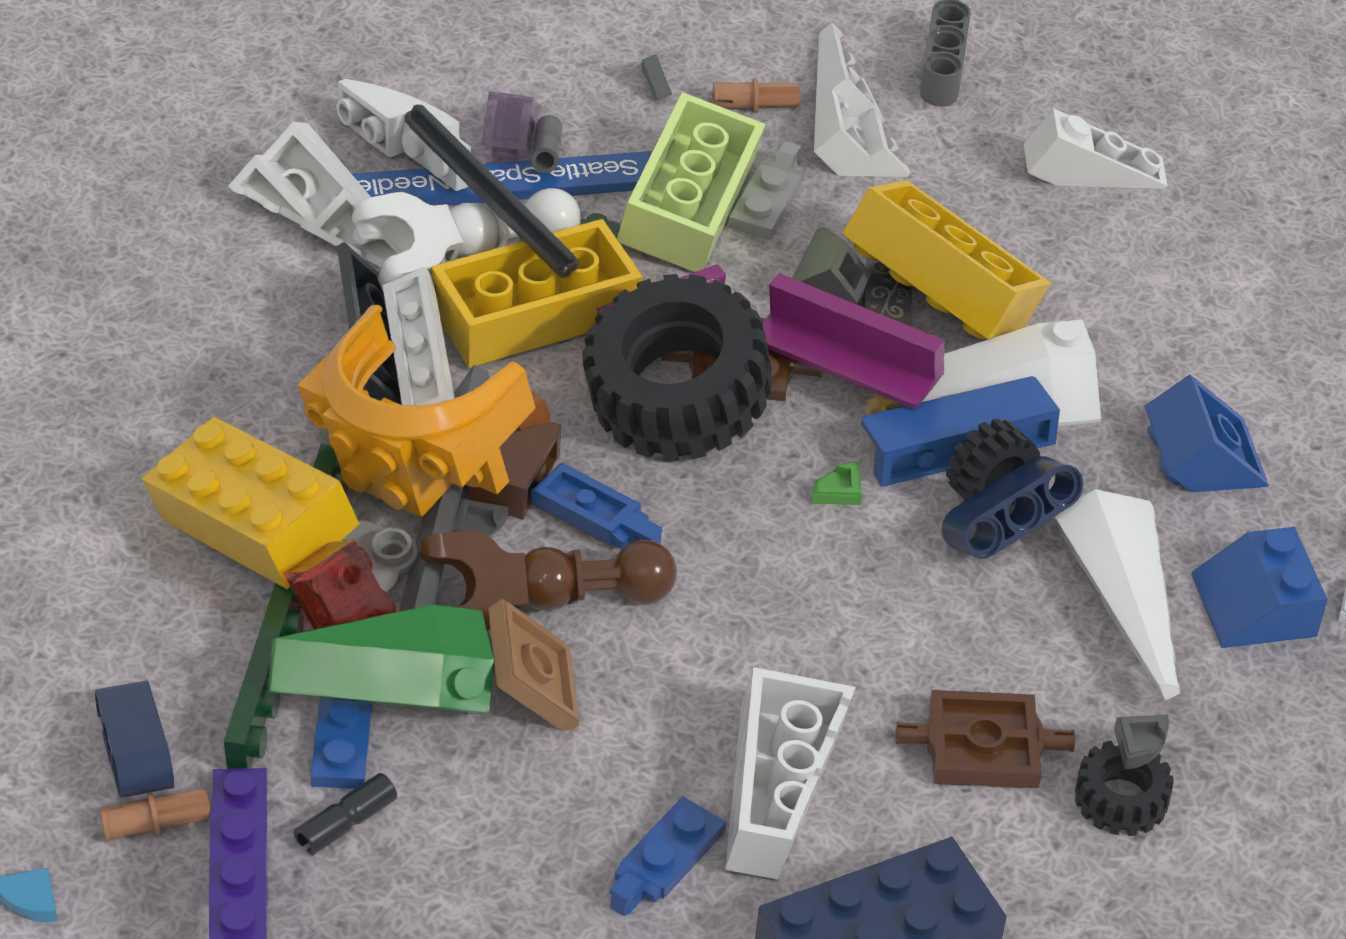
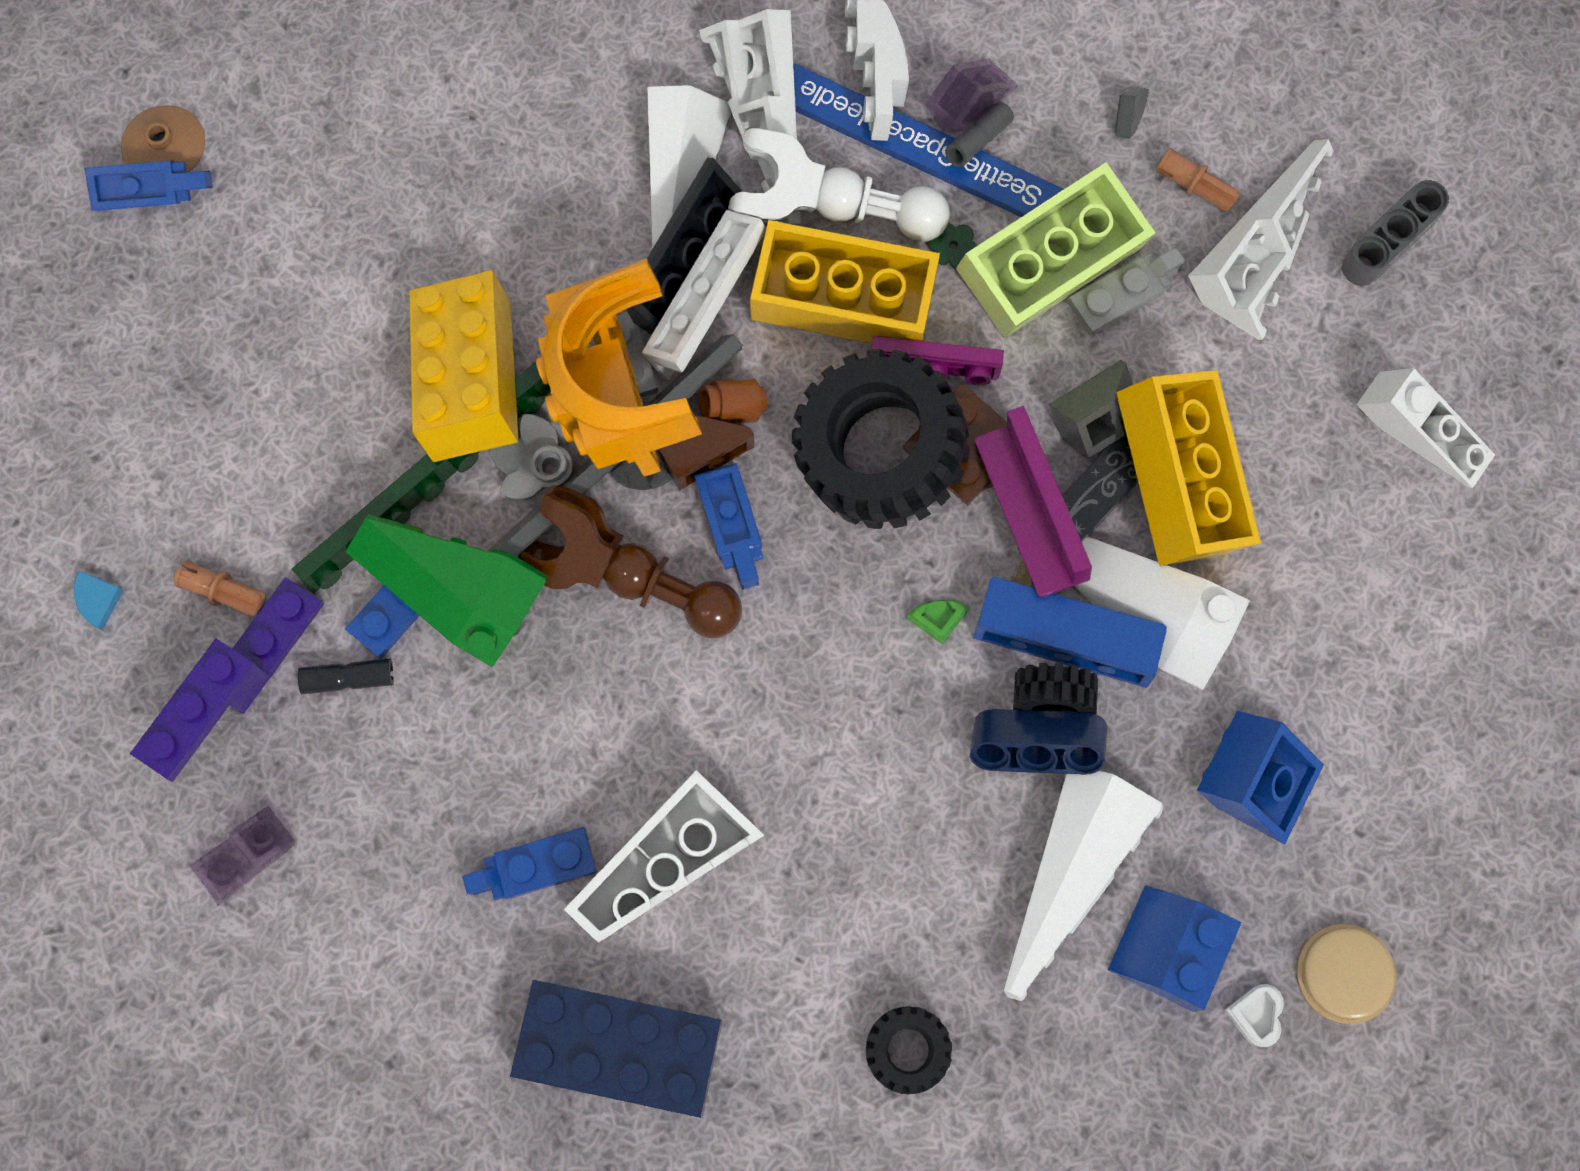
camera: 40 degrees right, 30 degrees up
(134, 739) = (243, 519): dark blue beam -> none
(289, 274) = (683, 132): none -> white wedge
(338, 586) = (464, 496): clear red brick -> none
(492, 191) = (866, 175): black axle -> none
(533, 666) = (557, 646): medium nougat tile -> none
(985, 738) = (844, 931): reddish brown plate -> none
(1140, 738) = (945, 1029): dark grey tile -> none

